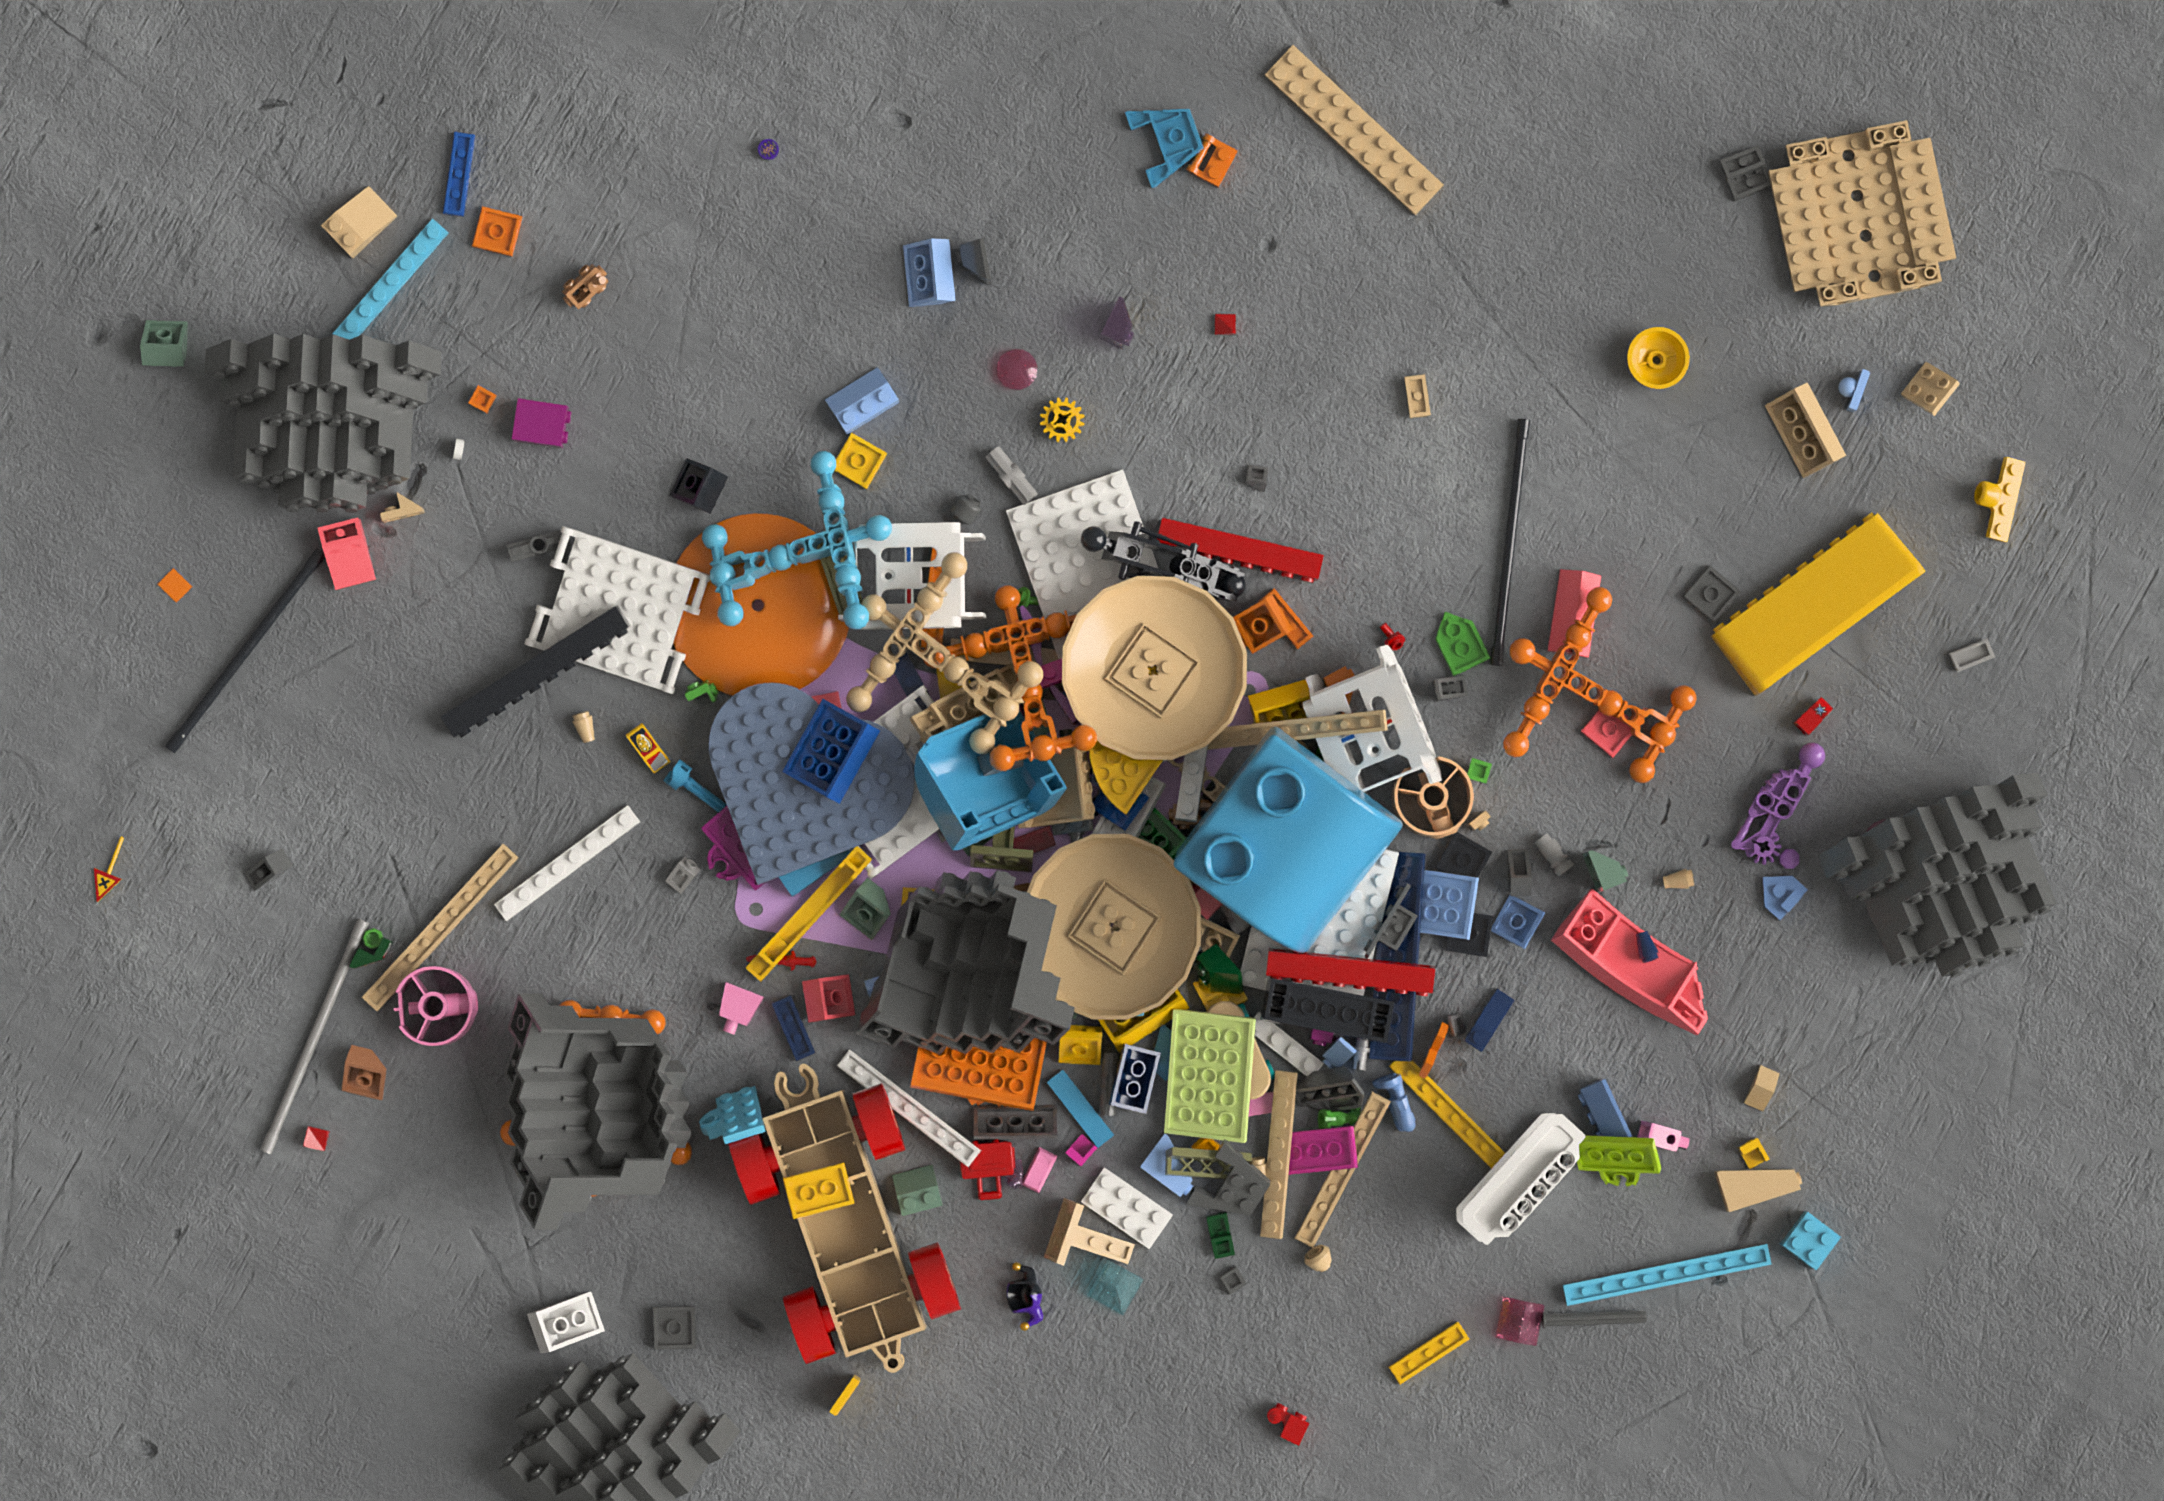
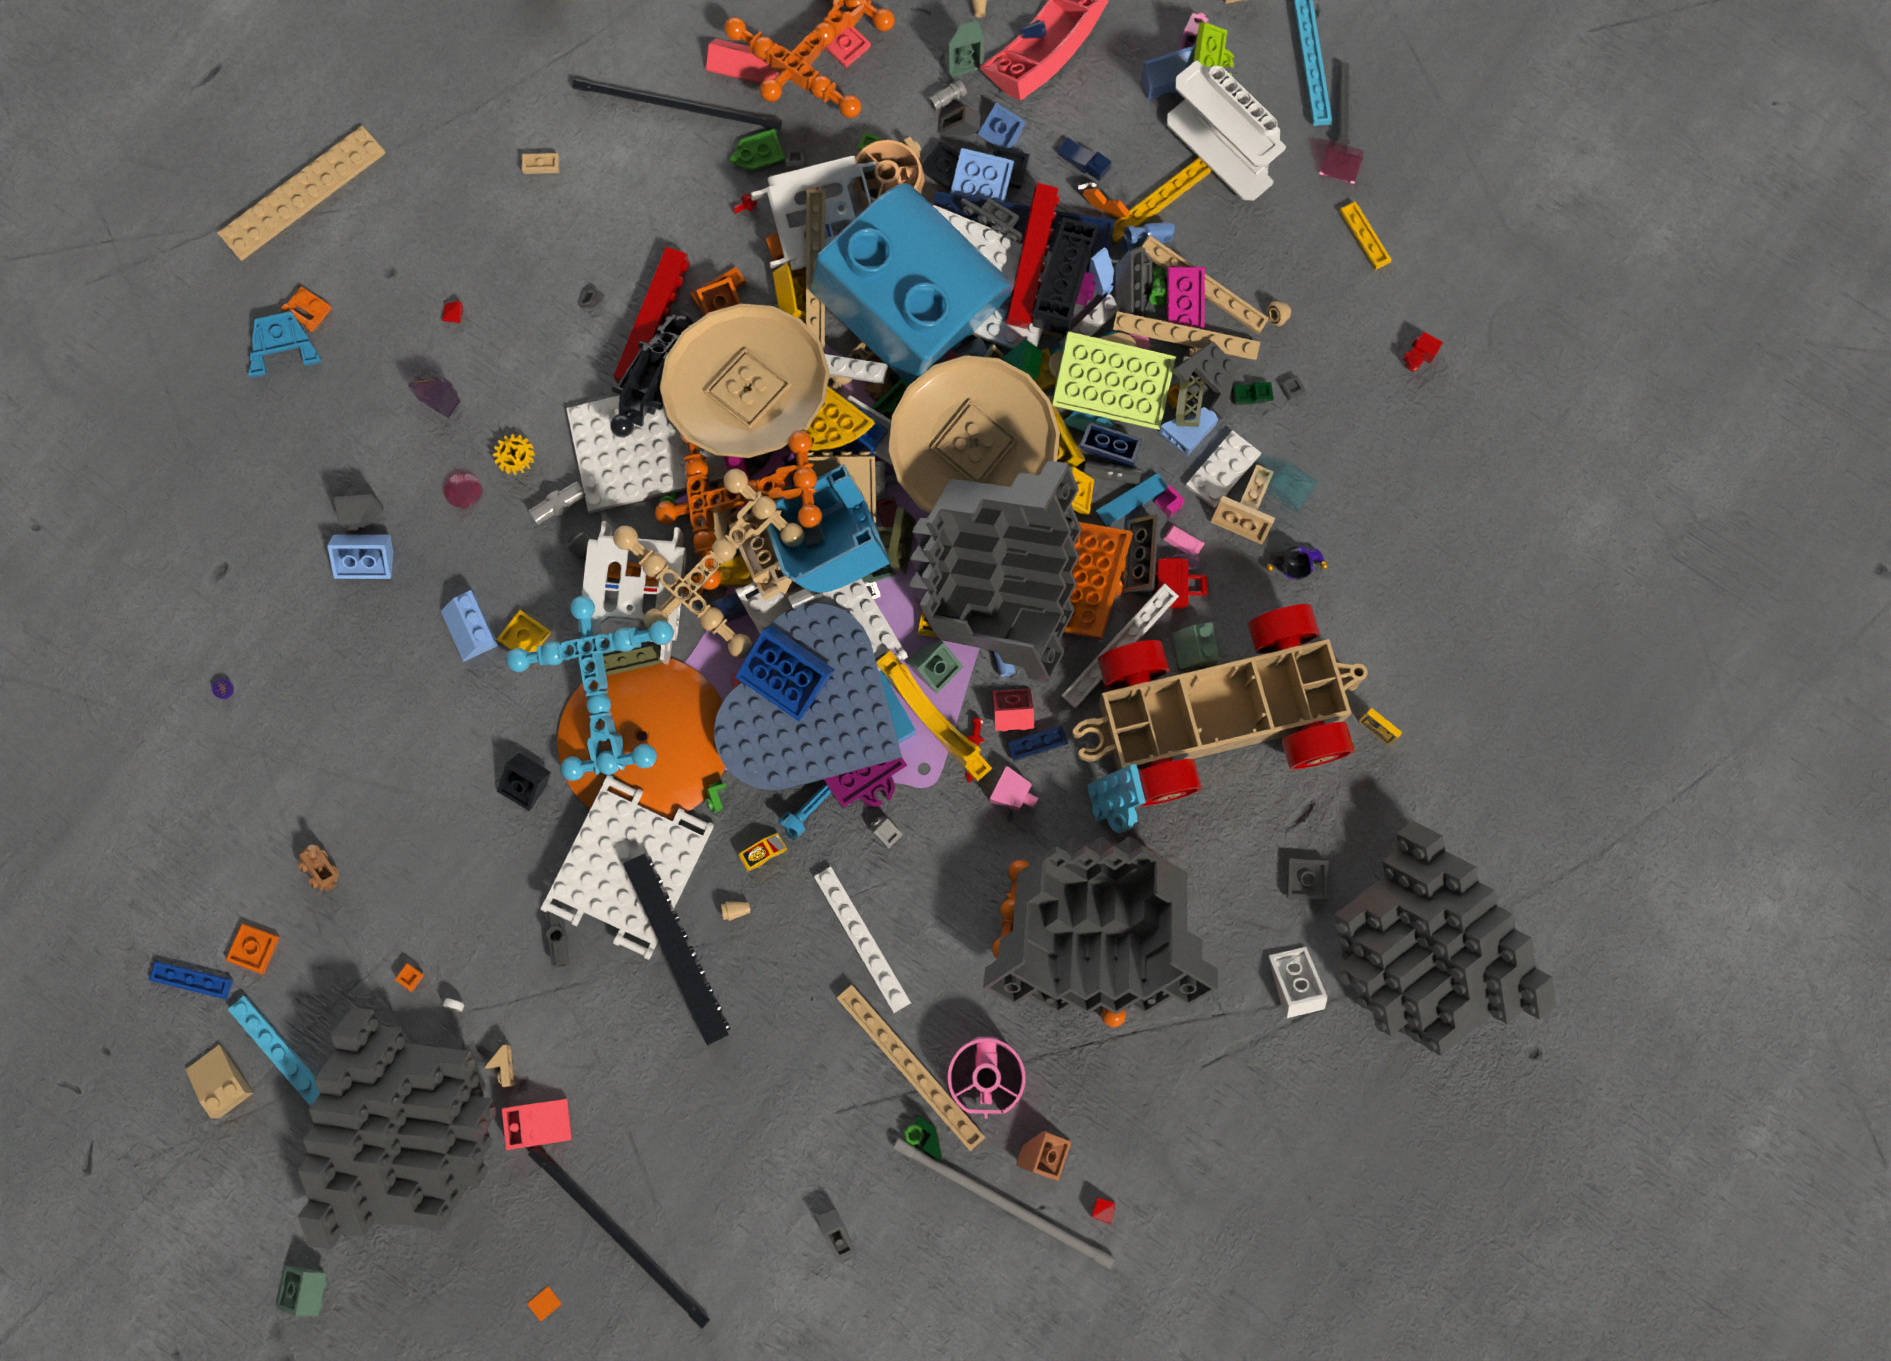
camera: 80 degrees left, 10 degrees down
(541, 423) = (441, 923): magenta brick -> none
(818, 1190) = (1194, 722): yellow tile -> none

